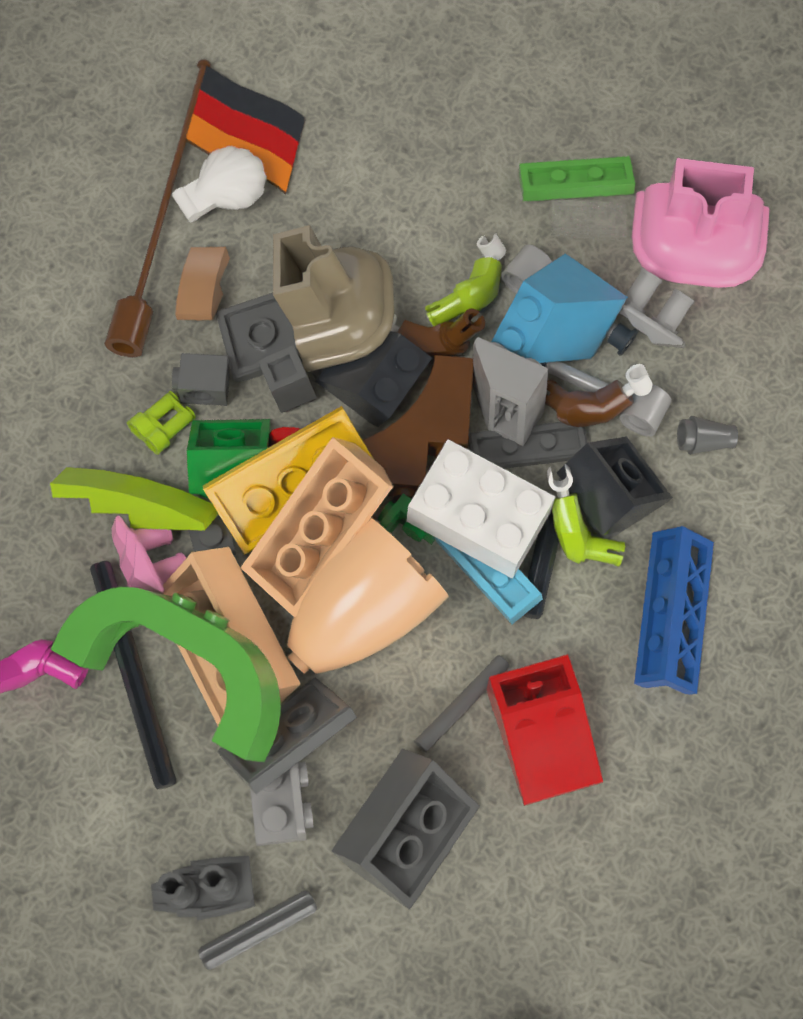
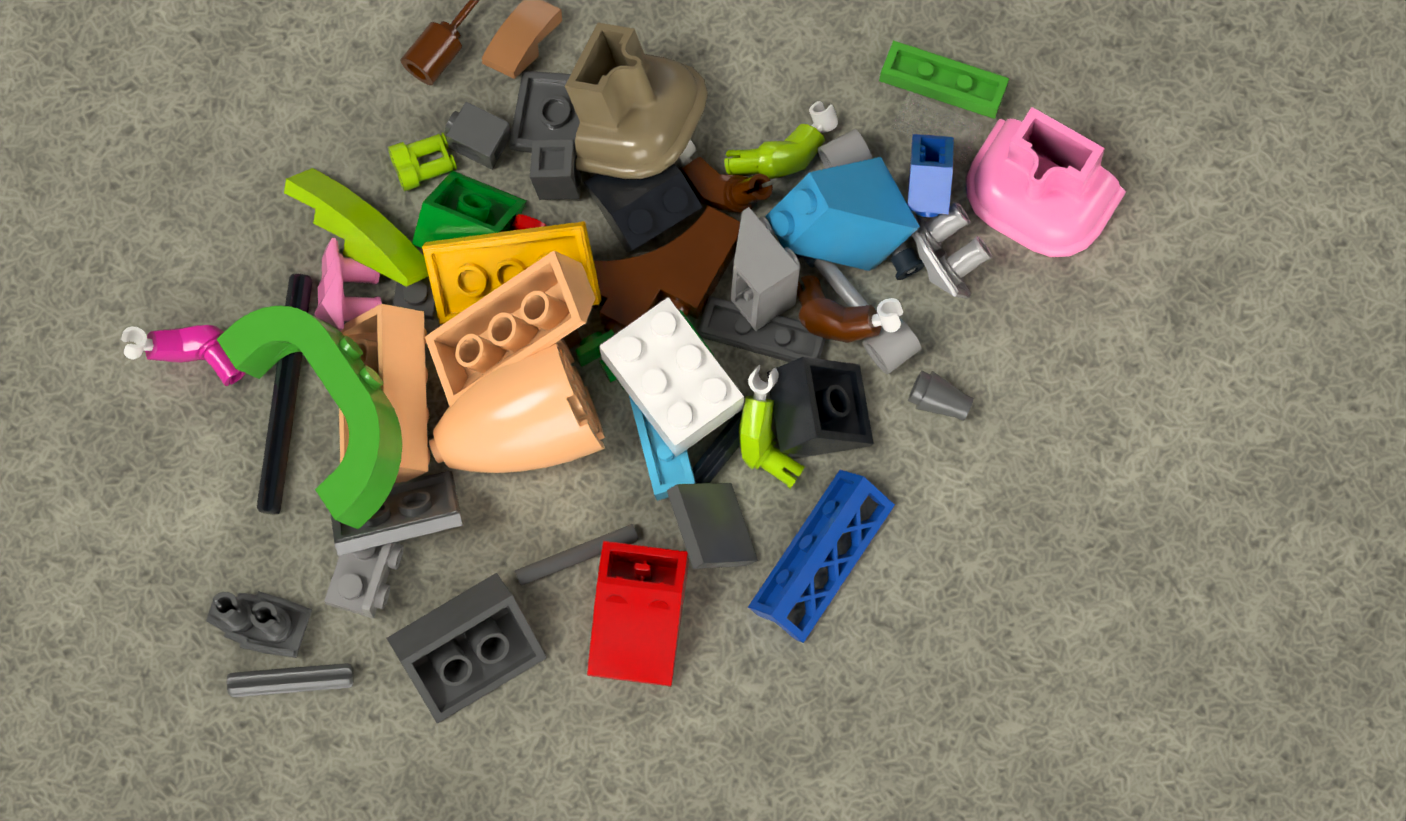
camera: 30 degrees right, 5 degrees up
(572, 624) = (712, 525): none -> dark grey tile
(611, 253) = (930, 174): none -> brick

